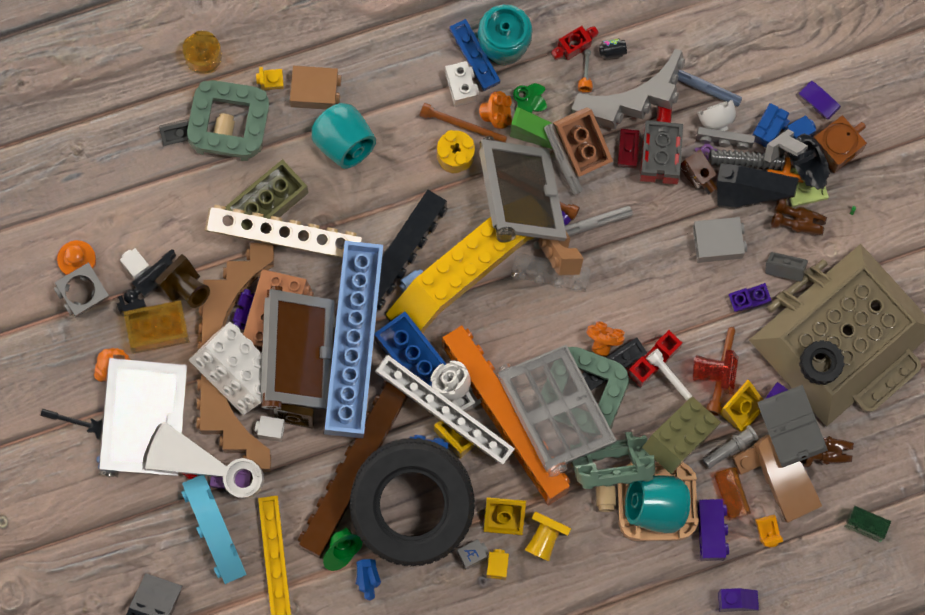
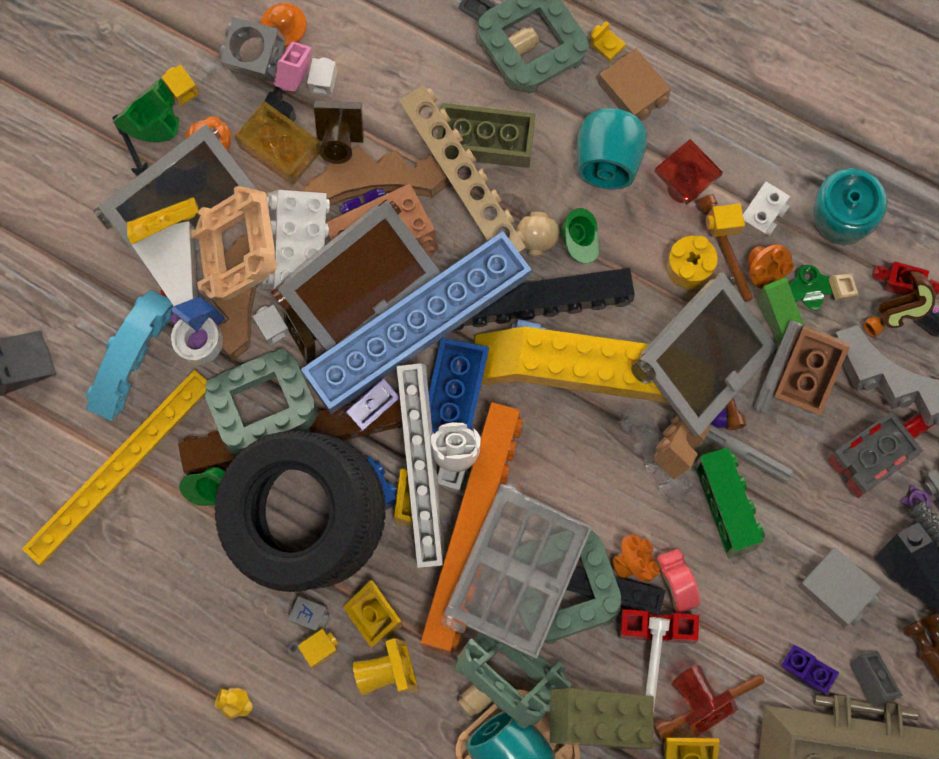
camera: 55 degrees right, 0 degrees up
(58, 355) = (180, 85): none -> yellow brick
(62, 390) = (150, 115): none -> green brick
(114, 275) = (292, 66): none -> bright pink brick
(145, 283) = (309, 96): black plate -> none
(146, 438) = (159, 220): none -> yellow wing
(181, 415) = (257, 264): none -> light nougat plate
(229, 464) = (196, 312): none -> blue slope
(344, 476) = (225, 414): none -> sand green plate
(357, 221) = (539, 232): none -> tan plant
(367, 577) = (199, 536): blue rock -> none
(381, 200) = (581, 235): none -> green piece
(381, 407) = (372, 404): none -> brick
(402, 105) = (688, 172): none -> clear red plant
(448, 109) = (725, 220): none -> yellow brick
(474, 54) = (803, 201): blue plate -> none
(546, 80) = (843, 286): none -> tan tile
(594, 53) = (909, 306): none -> reddish brown animal
(618, 257) = (729, 502): none -> green brick
(628, 148) = (849, 420): dark red plate -> none
(638, 324) = (679, 580): none -> coral animal
(696, 166) = (895, 499): reddish brown torso -> none

